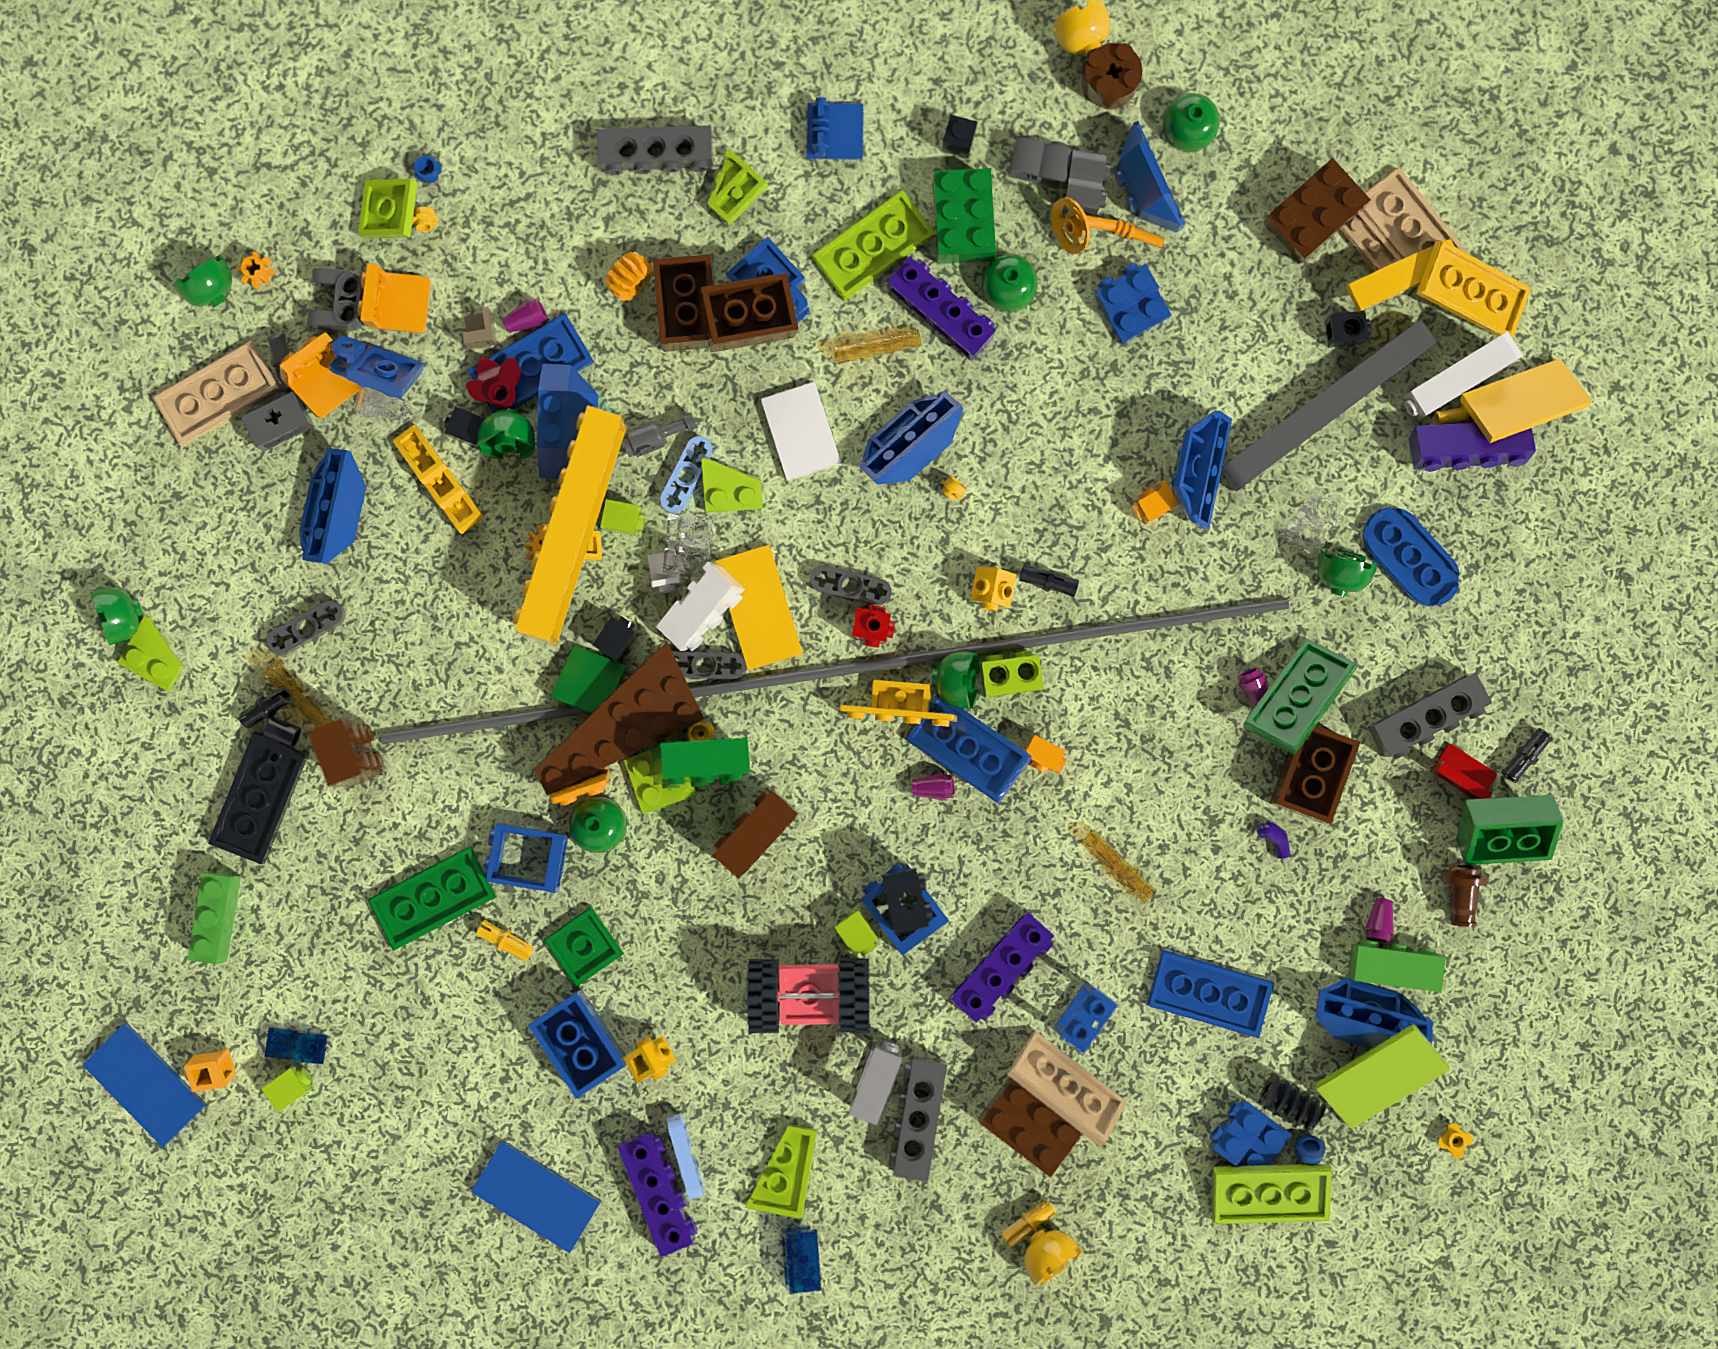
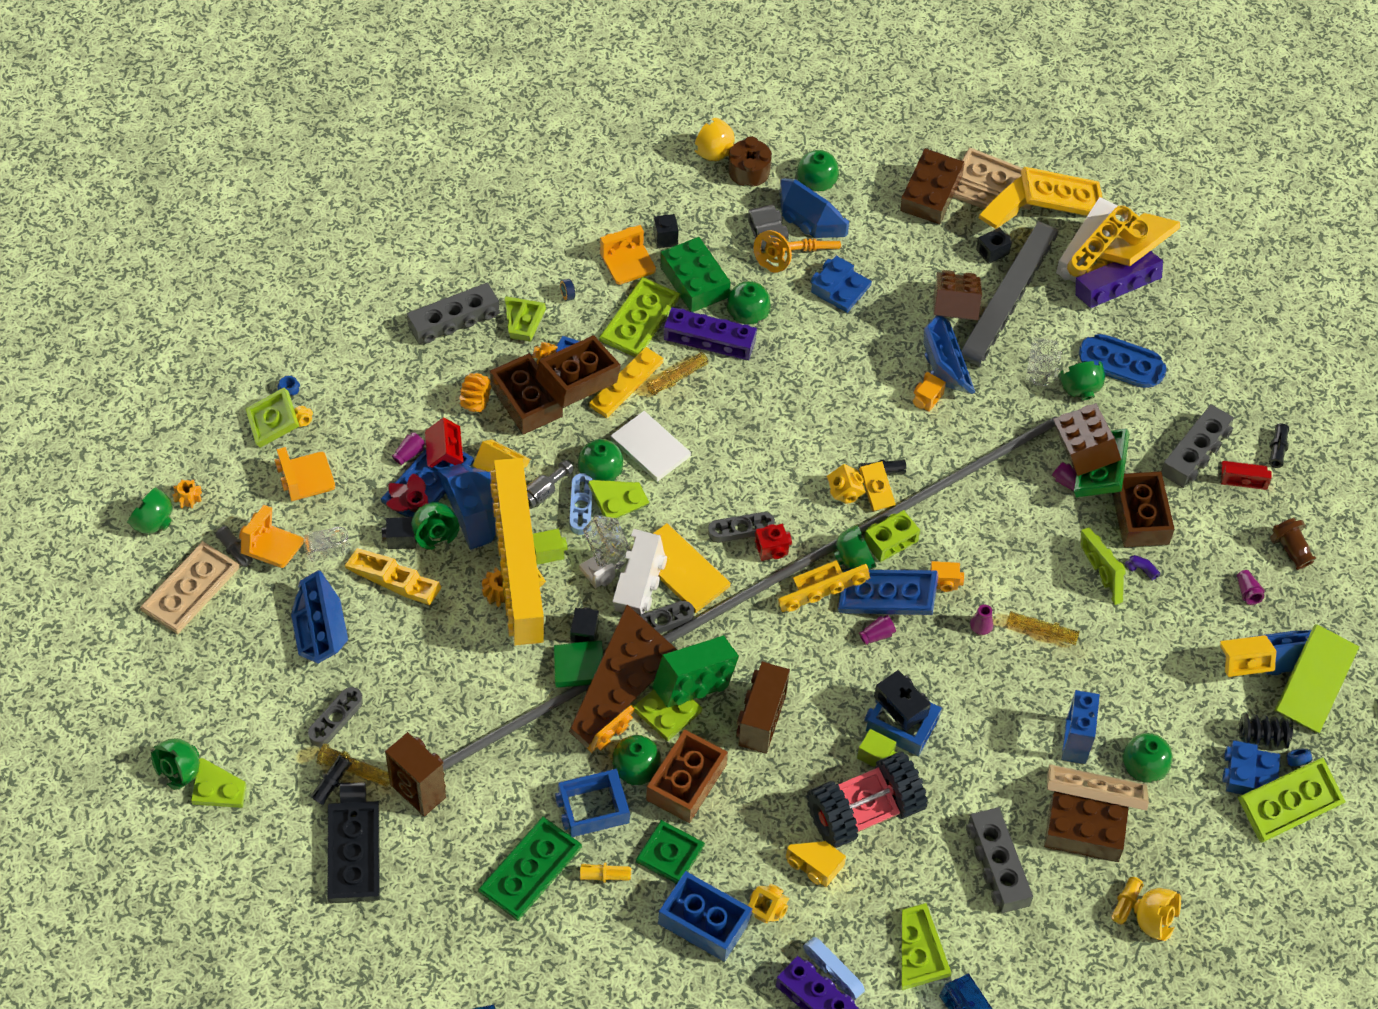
camera: 30 degrees left, 30 degrees down
(214, 917) = (358, 951): bright green brick -> none
(292, 421) = (249, 583): dark grey brick -> none
(343, 301) = (258, 476): dark grey piece -> none
(374, 367) = (310, 517): blue plate -> none
(480, 330) = (379, 470): dark tan panel -> none
(564, 331) = (443, 443): none -> red panel
(622, 377) = (492, 450): none -> yellow panel
(636, 874) = (686, 776): none -> dark orange brick
(727, 1030) = (817, 860): none -> yellow slope
(730, 263) = (543, 351): none -> light orange gear
(733, 430) = (601, 460): none -> green cylinder
(804, 171) = (567, 289): none -> dark blue tile
(817, 331) = (628, 381): none -> yellow plate
(834, 130) = (575, 260): blue hinge -> none
(876, 1081) = (952, 841): light grey window -> none
(897, 153) = (626, 255): none -> light orange bracket
(911, 439) = (736, 413): blue wedge -> none
(953, 488) = (781, 438): yellow plate -> none
(1002, 966) = (998, 729): dark purple brick -> none
(1028, 604) = (877, 486): none -> yellow plate
(1040, 161) = (729, 227): dark grey brick -> none
(1046, 829) = (982, 620): none -> magenta cone
(1145, 1071) = (1147, 757): none -> green cylinder
(1210, 993) = (1161, 686): blue tile -> none
(1230, 831) = (1102, 558): none -> lime wing
(1255, 393) = (957, 295): none -> reddish brown brick
(1298, 661) = (1087, 439): none -> reddish brown brick
(1321, 1017) = (1248, 655): none -> yellow panel
(1396, 966) = (1280, 610): bright green brick -> none
(1471, 401) = (1101, 242): none -> yellow beam
(1509, 829) = (1297, 487): green brick -> none

